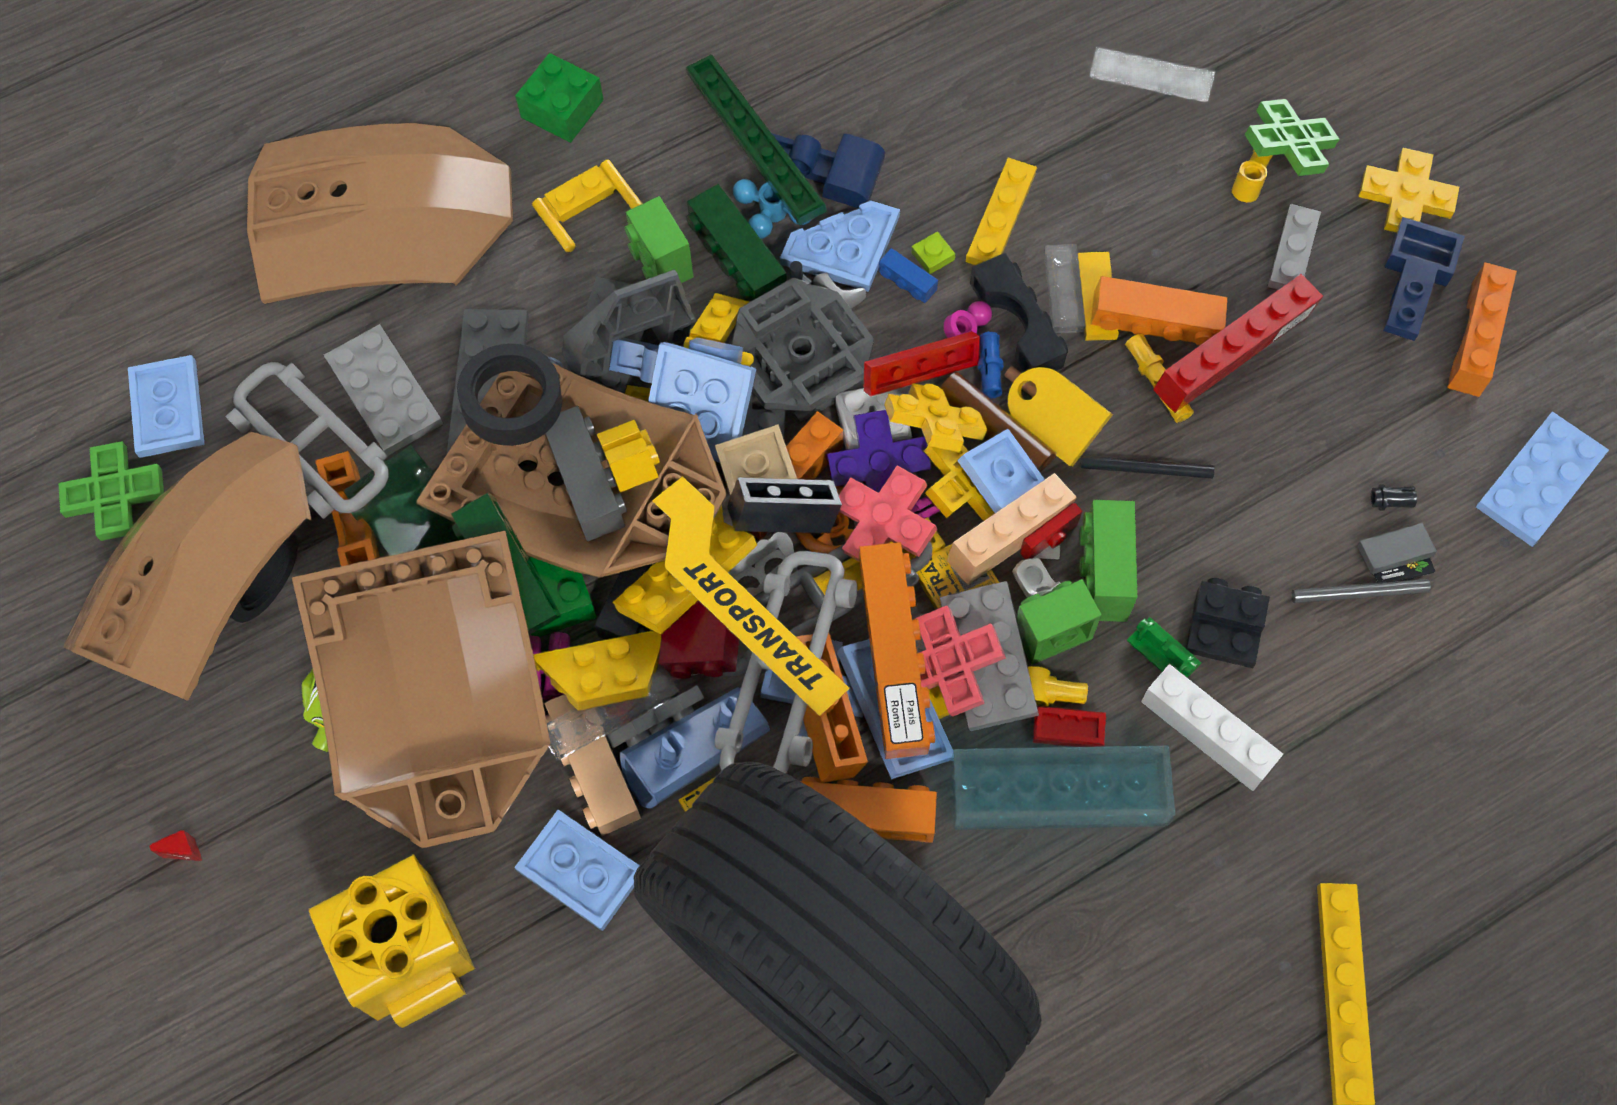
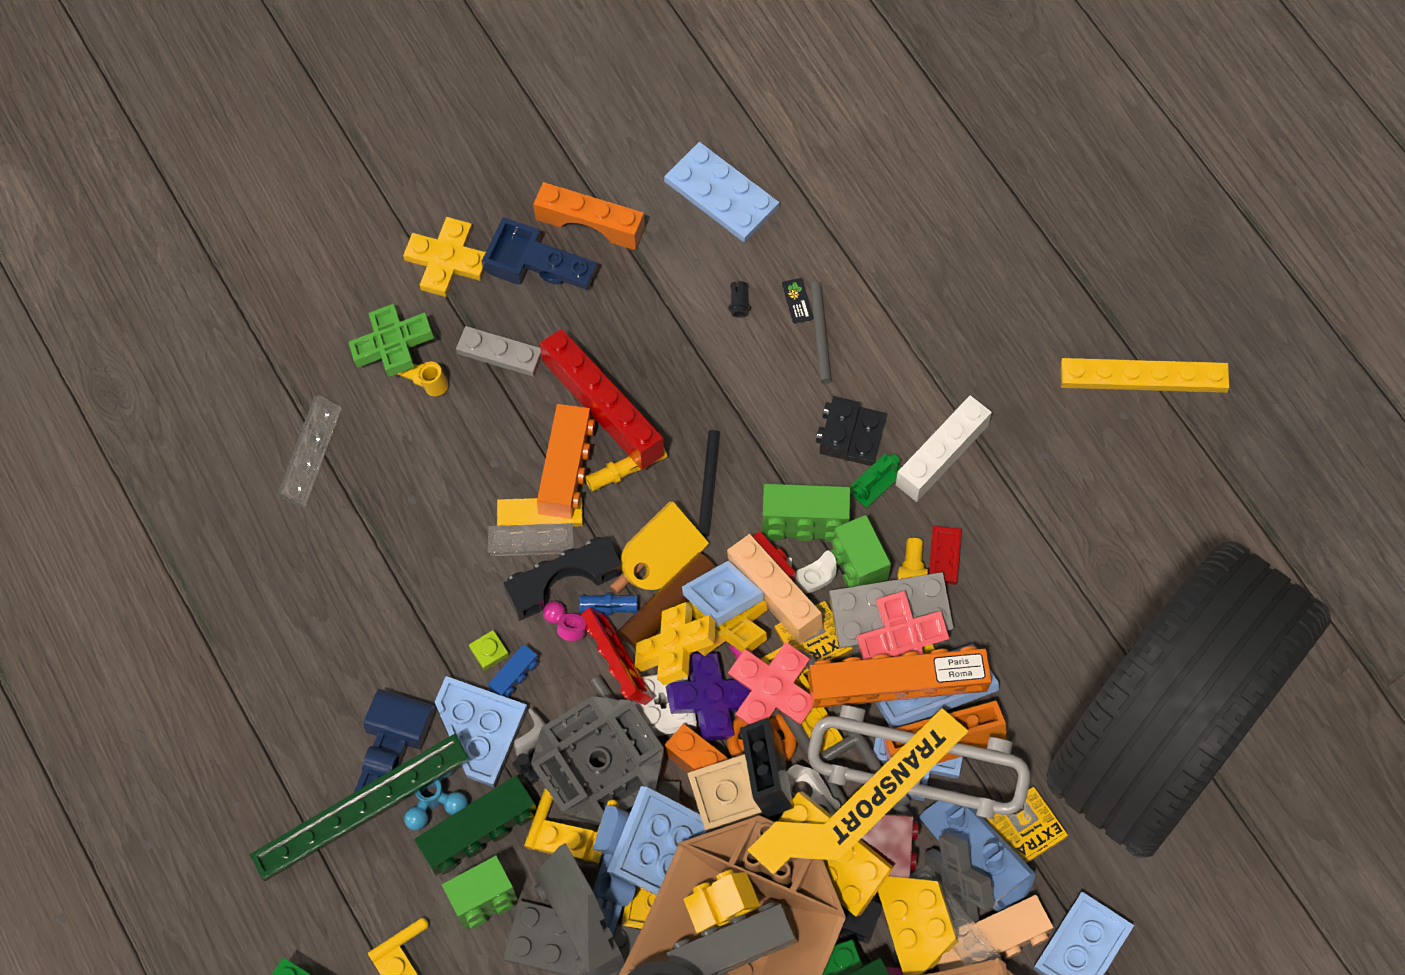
camera: 90 degrees left, 0 degrees up
(885, 810) = (1024, 709): orange brick -> none
(1001, 211) = (450, 589): yellow plate -> none
(1062, 787) = (1000, 562): clear light blue brick -> none
(1396, 548) = (784, 302): tile -> none

